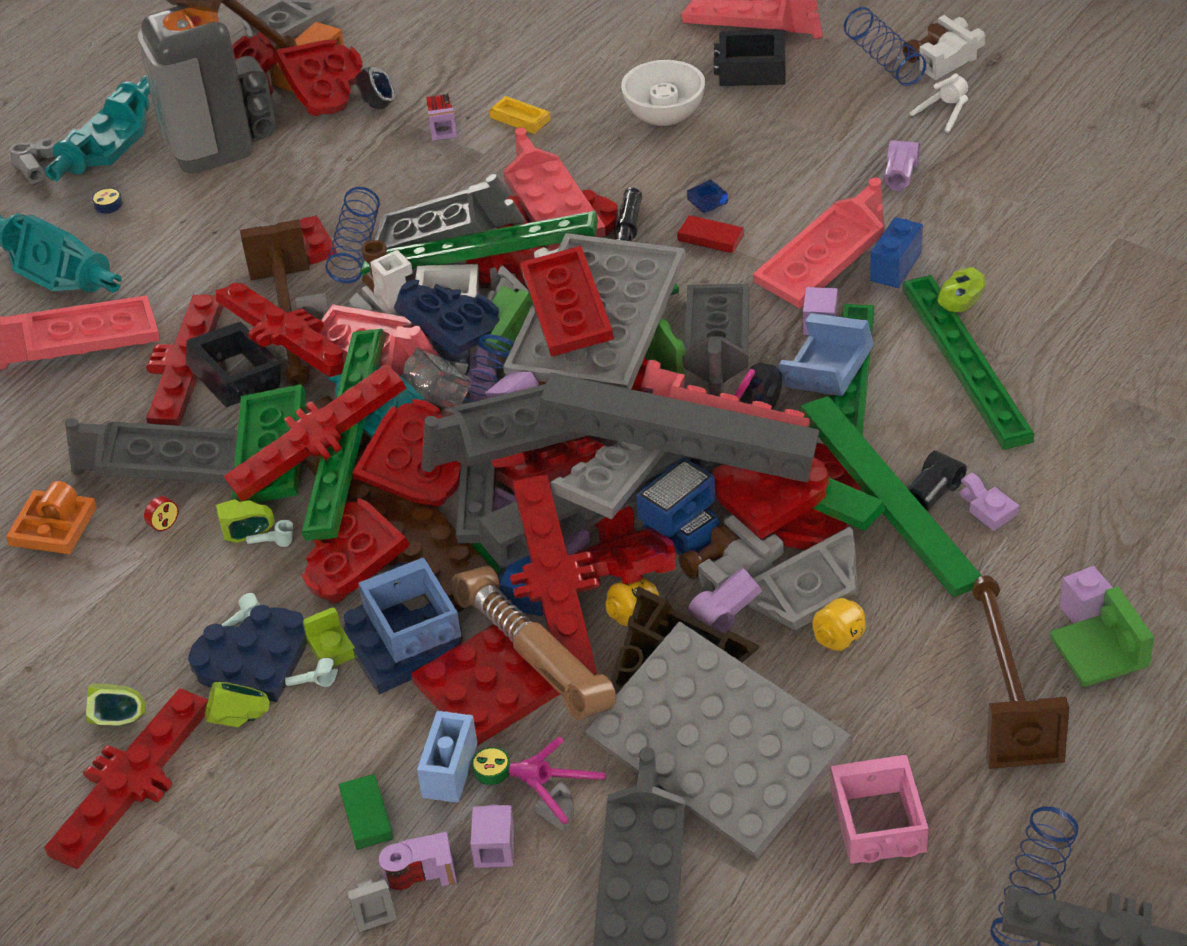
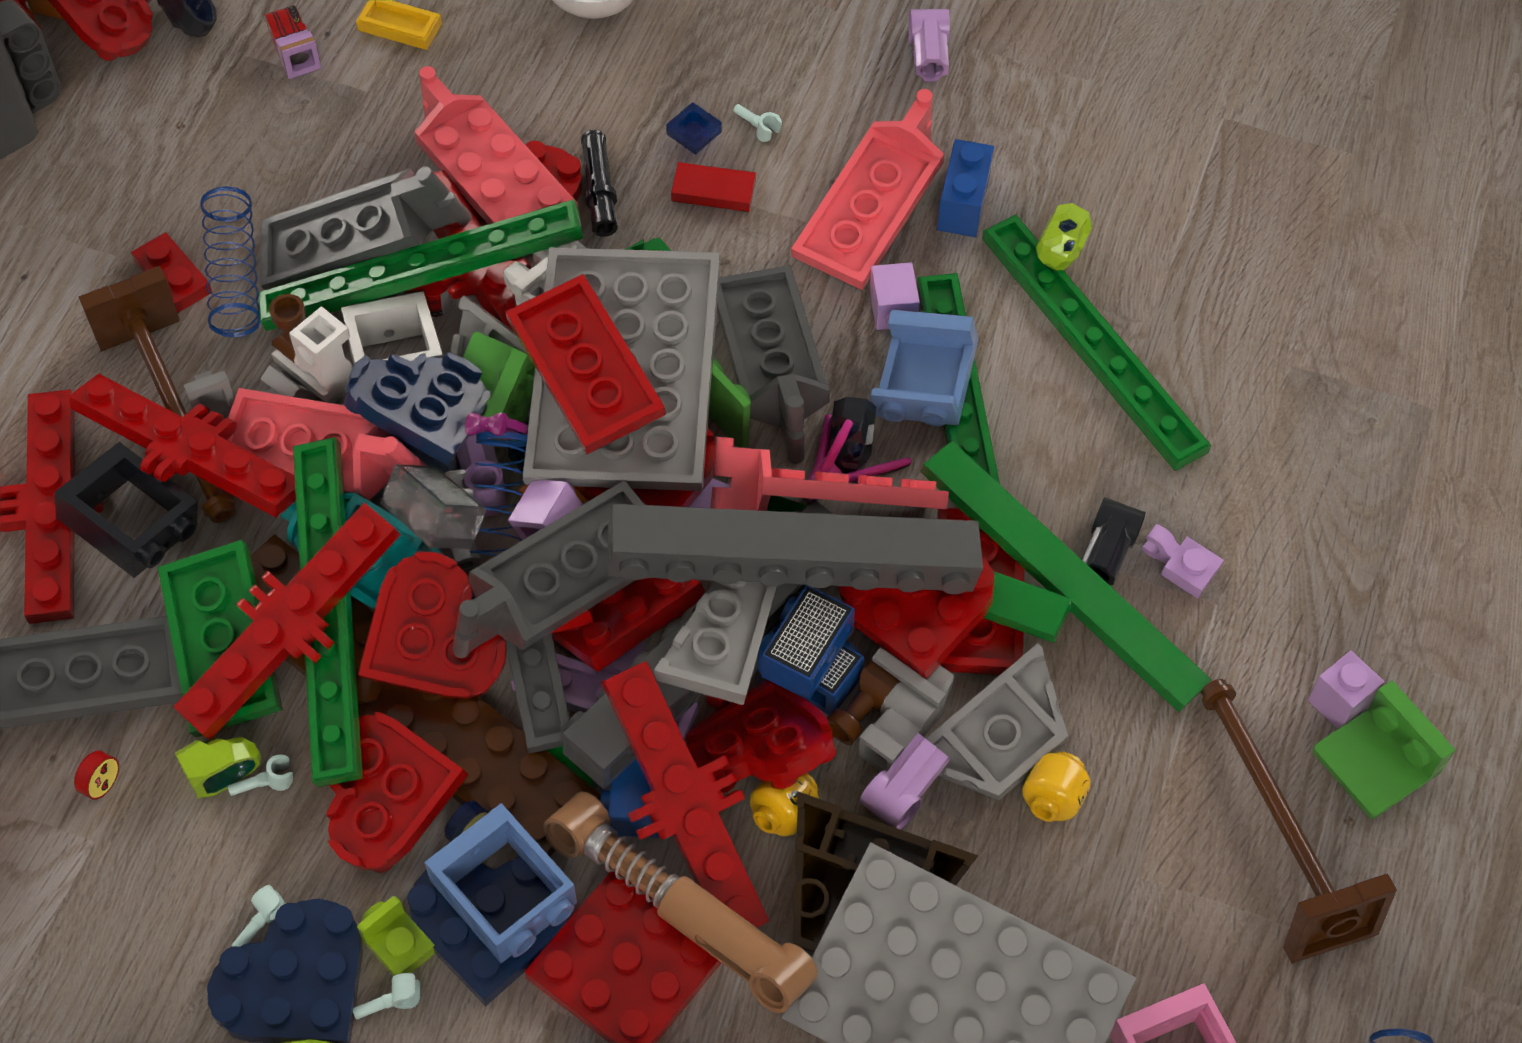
camera: 20 degrees left, 15 degrees up
(492, 329) = (496, 424): none -> magenta piece
(760, 199) = (762, 122): none -> light aqua hand

